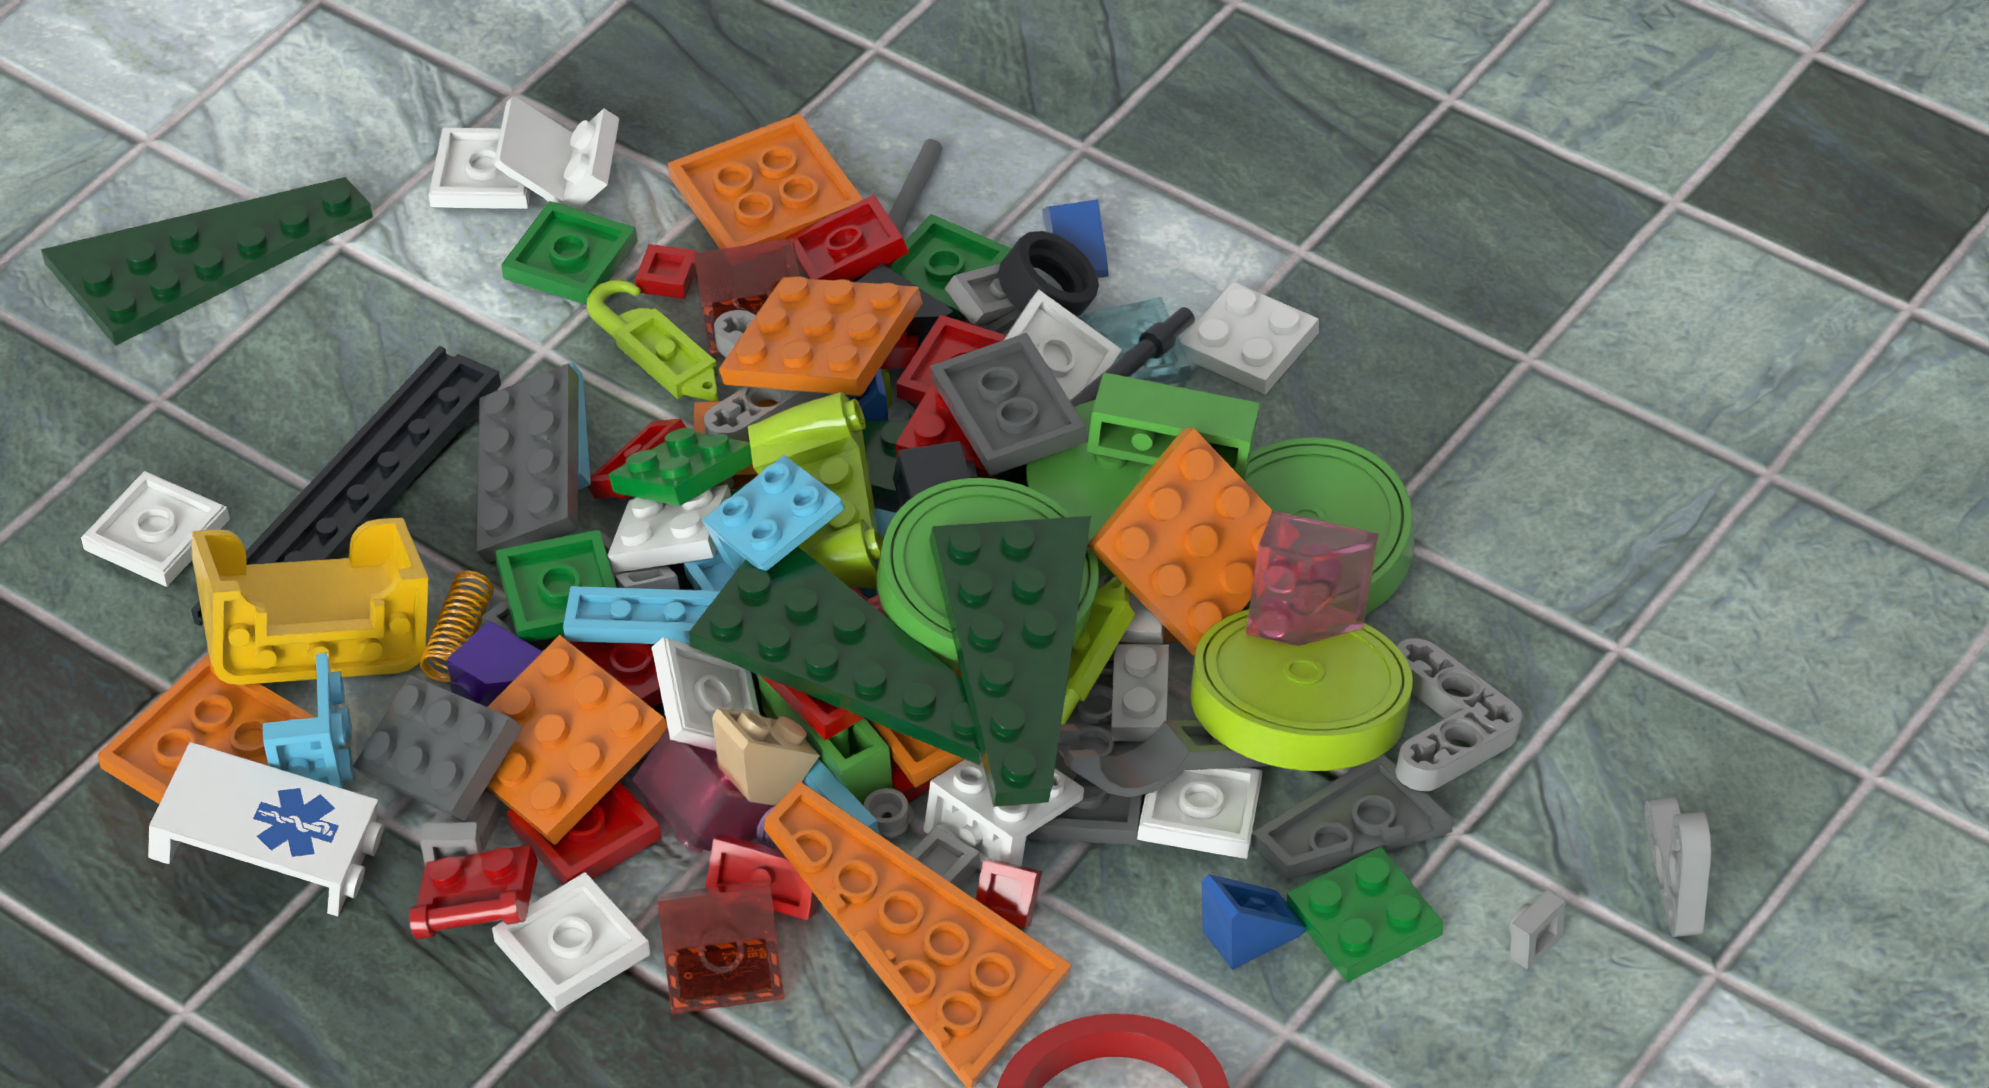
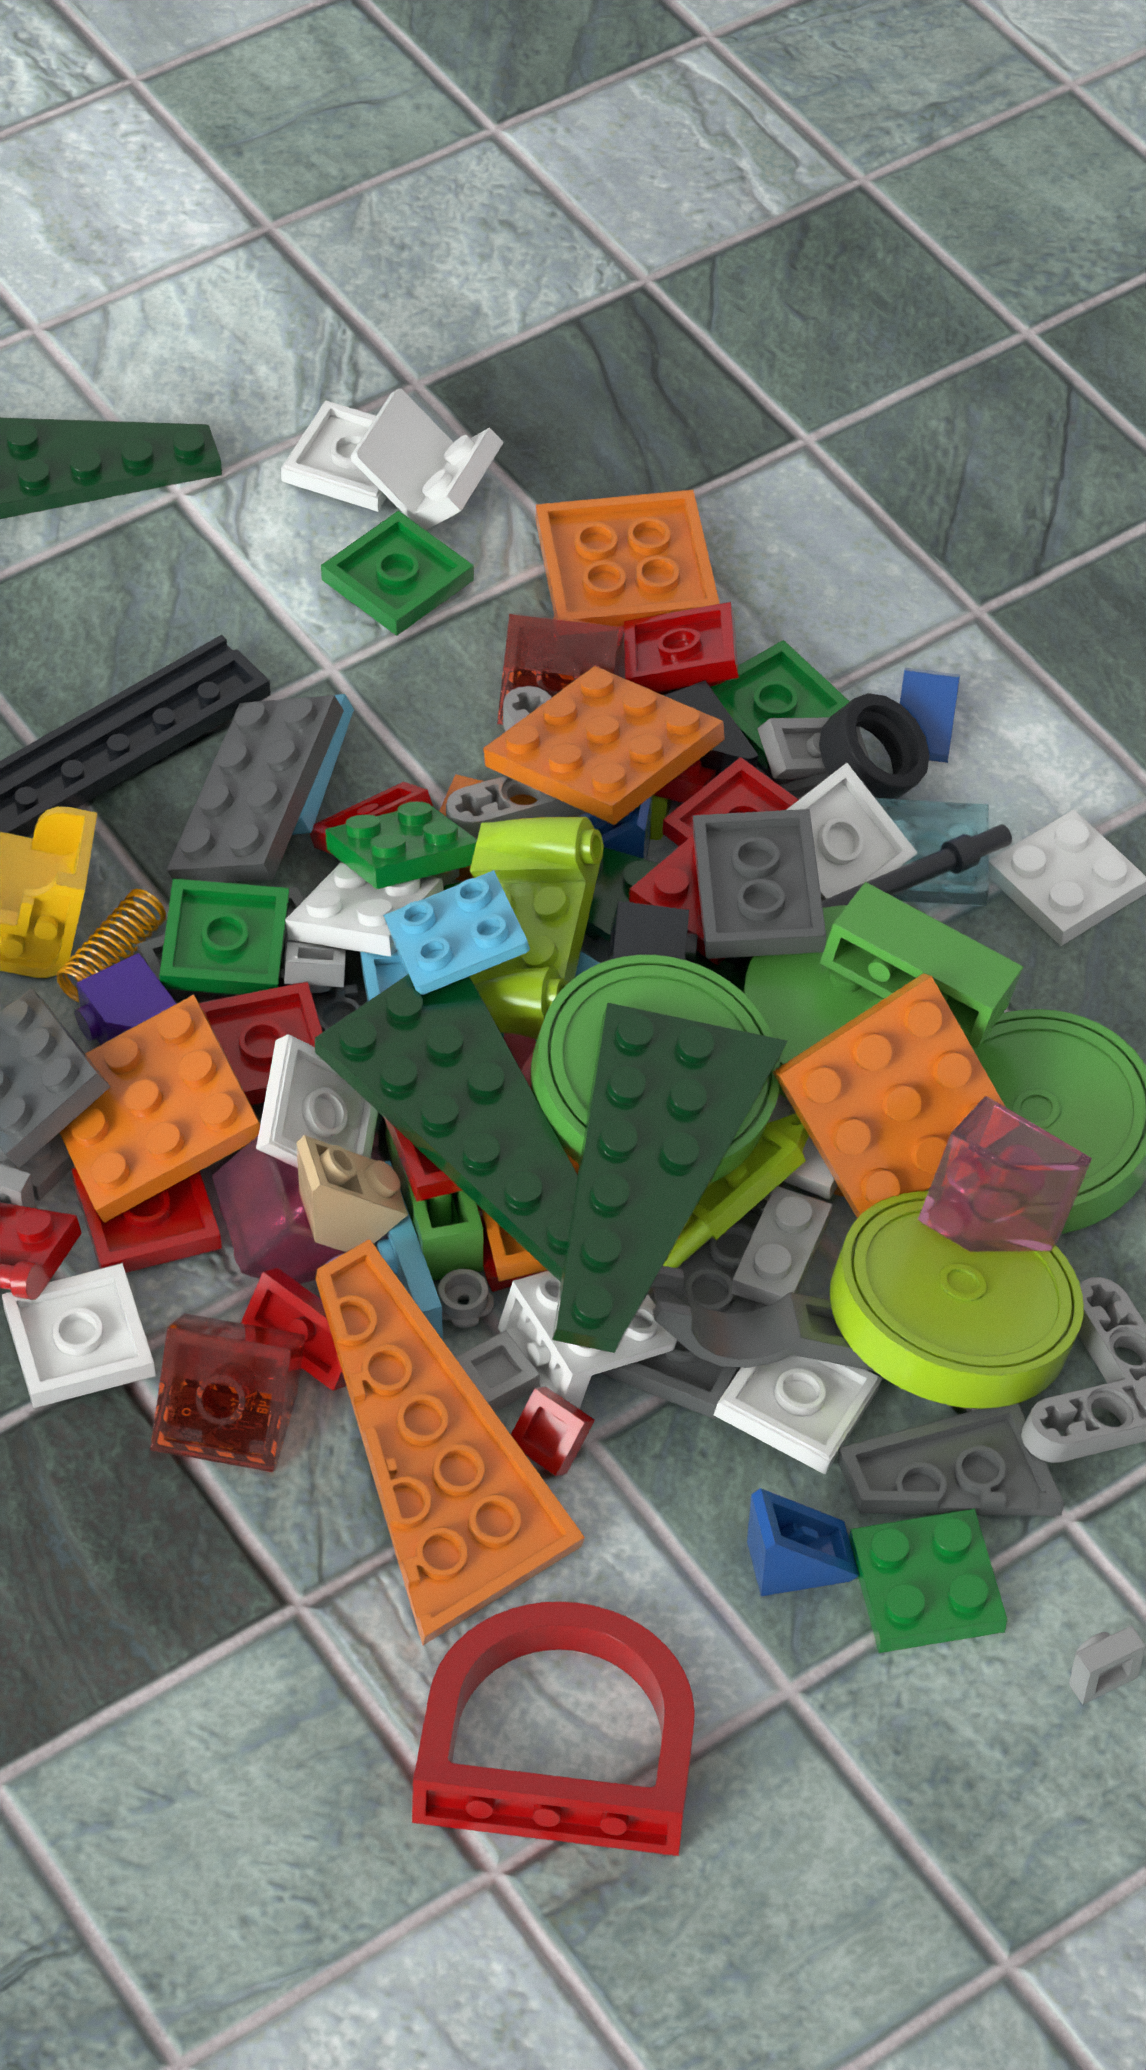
camera: 15 degrees right, 5 degrees up
(633, 614) = (276, 994): medium azure plate -> none
(656, 344) = (442, 697): lime plate -> none
(665, 271) = (484, 621): red plate -> none
(914, 183) = (780, 605): dark grey bar -> none

